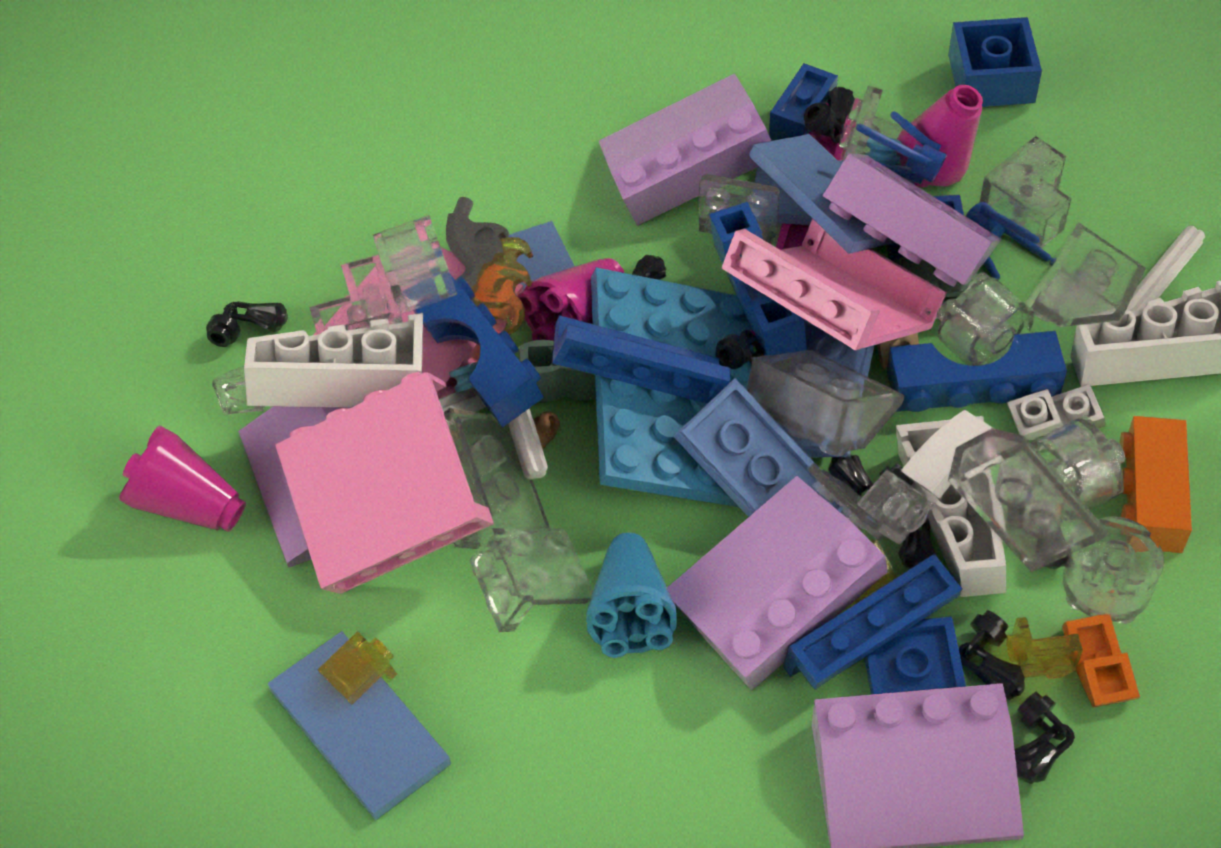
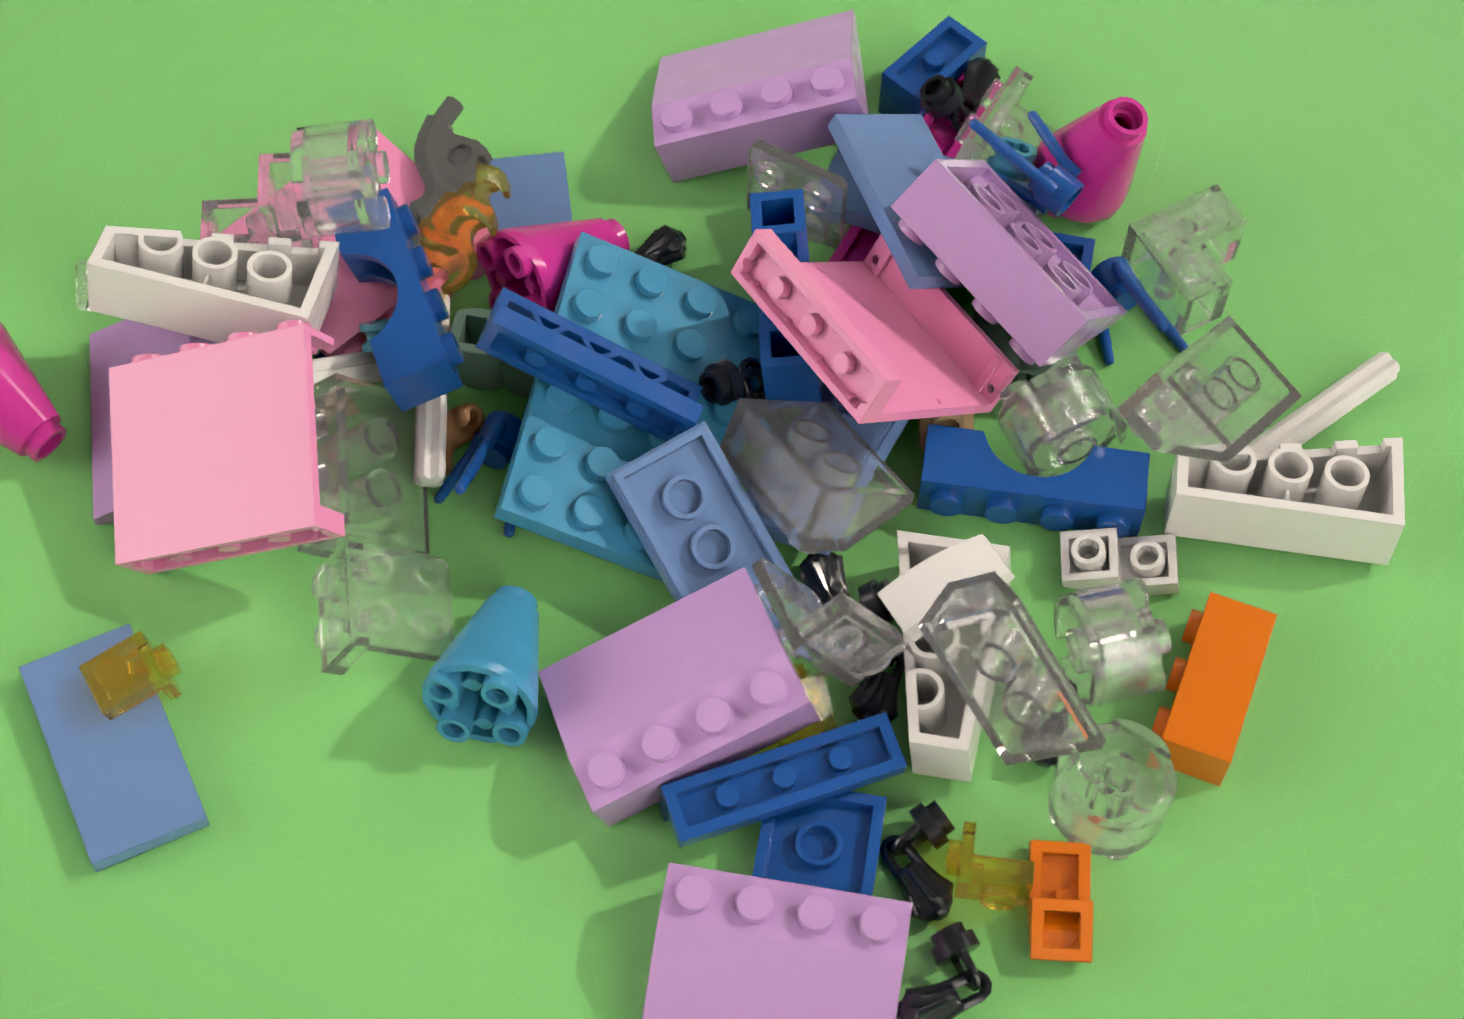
camera: 10 degrees right, 5 degrees up
(224, 329) = (170, 193): black piece -> none
(574, 438) = (490, 447): none -> blue plant
(996, 60) = (1203, 70): blue brick -> none

